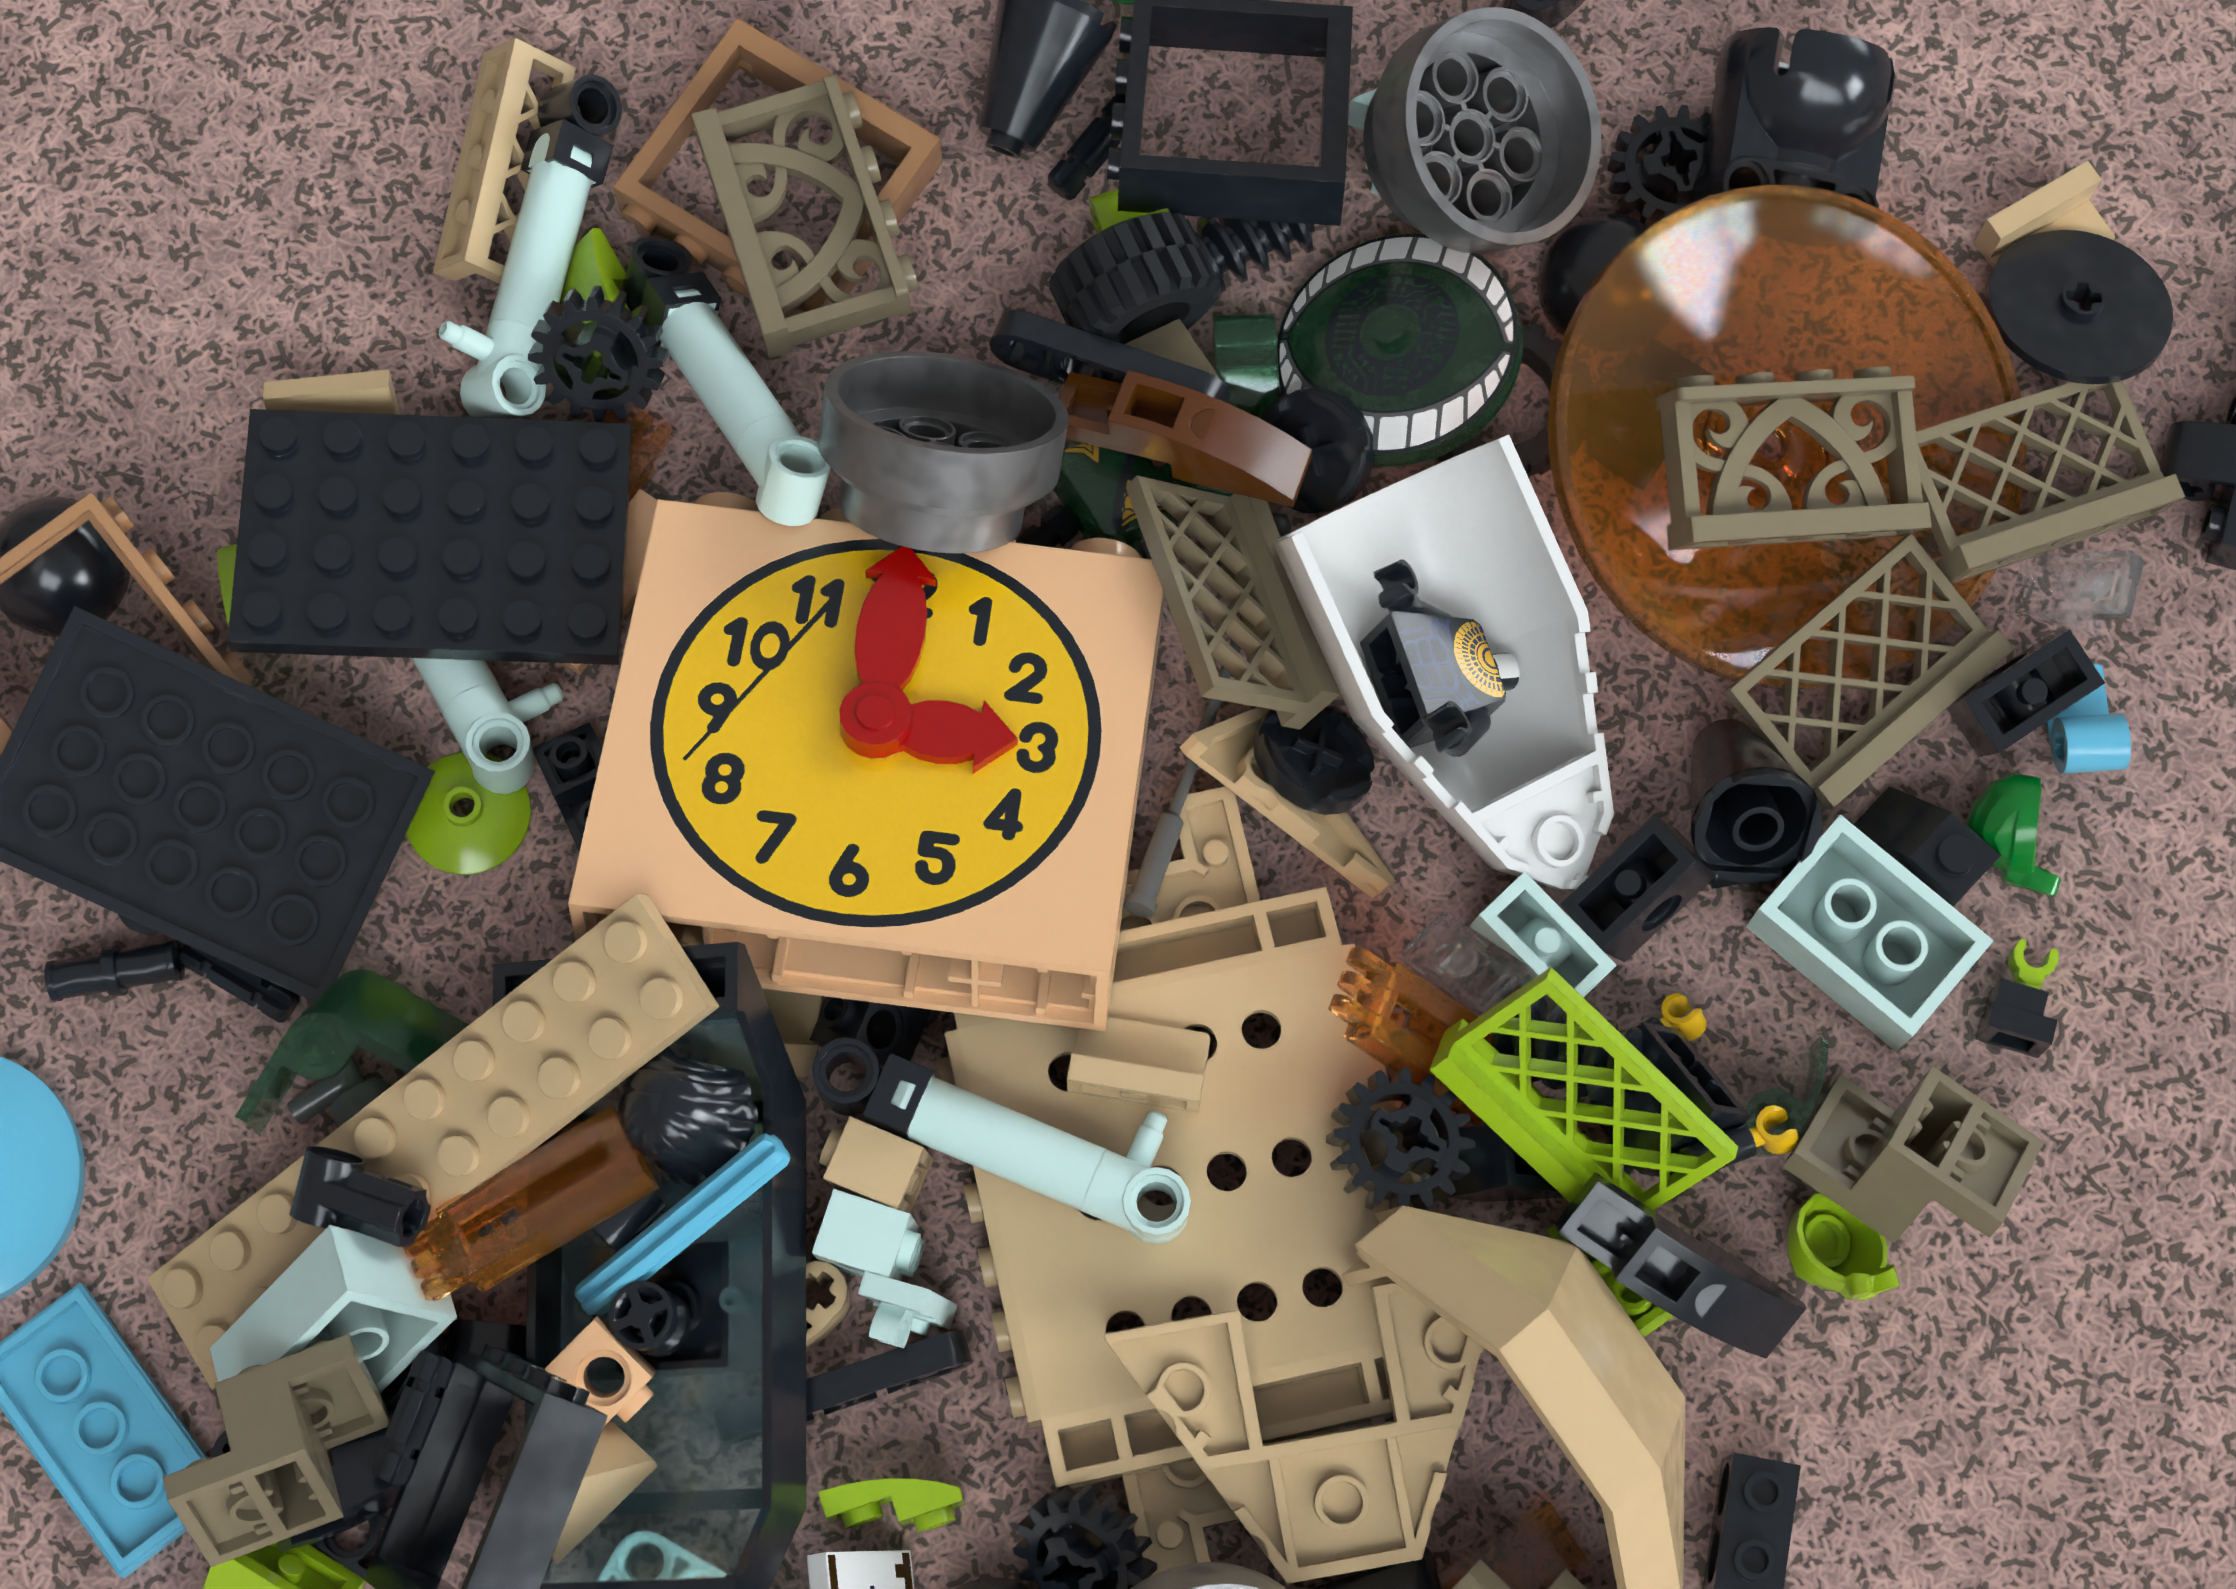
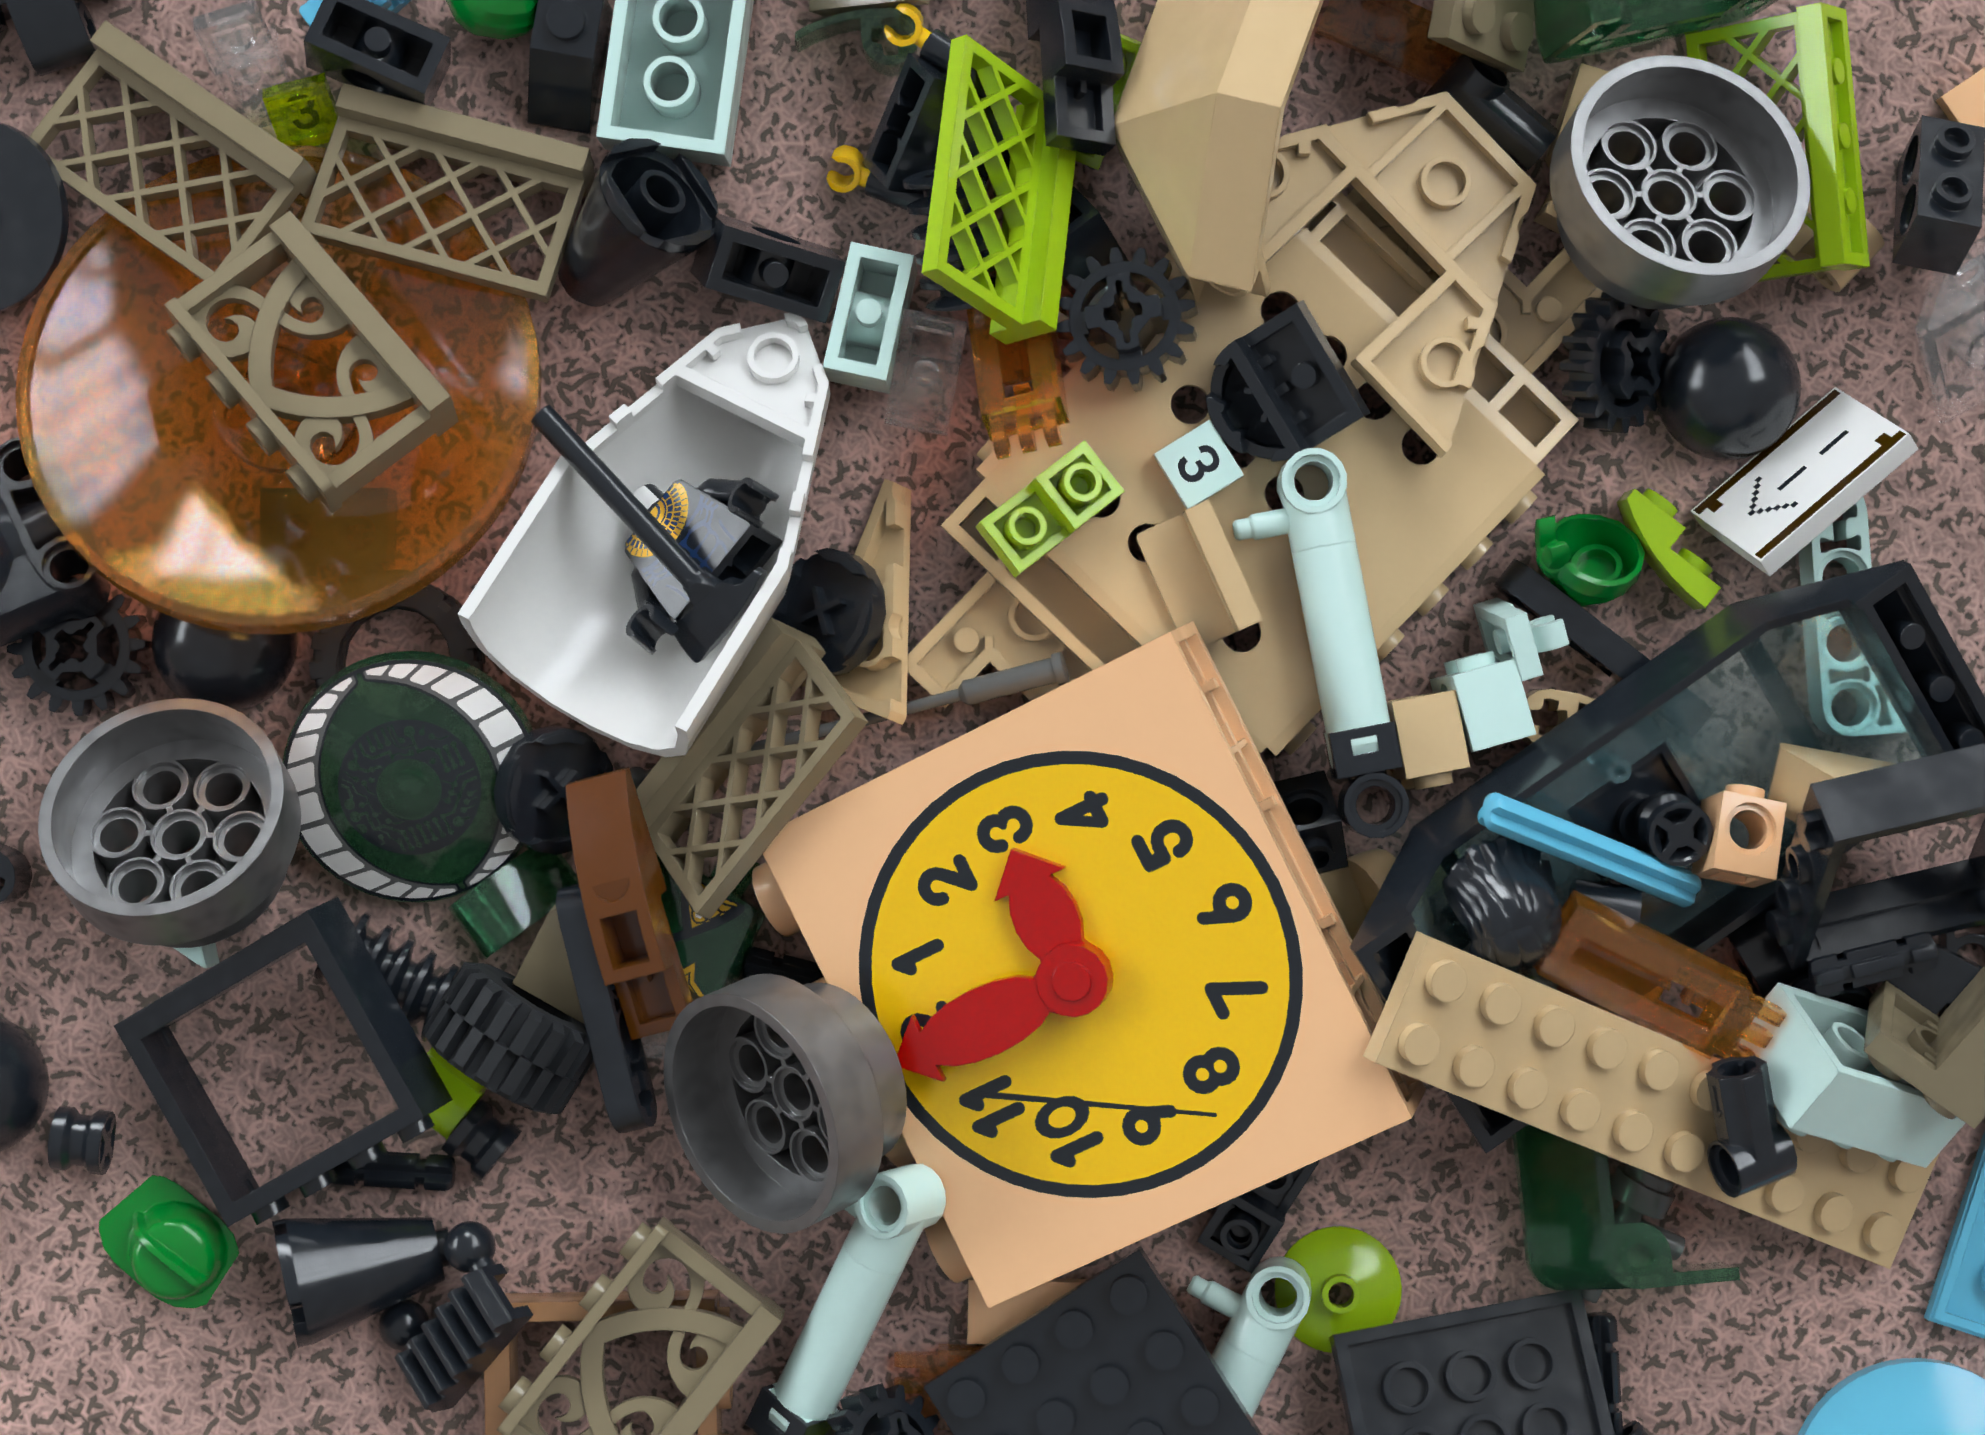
camera: 120 degrees left, 15 degrees up
(926, 112) = (470, 1331): none -> black gear
(932, 1423) = (1588, 557): none -> green piece
(1068, 222) = (481, 1139): none -> black wheel
(1235, 1125) = (1198, 465): none -> light aqua tile
(1253, 1235) = (1282, 388): none -> black slope
(1280, 977) = (1049, 508): none -> lime slope
(1386, 647) = (715, 602): none -> black piece
(2013, 607) = (302, 111): none -> clear neon green tile

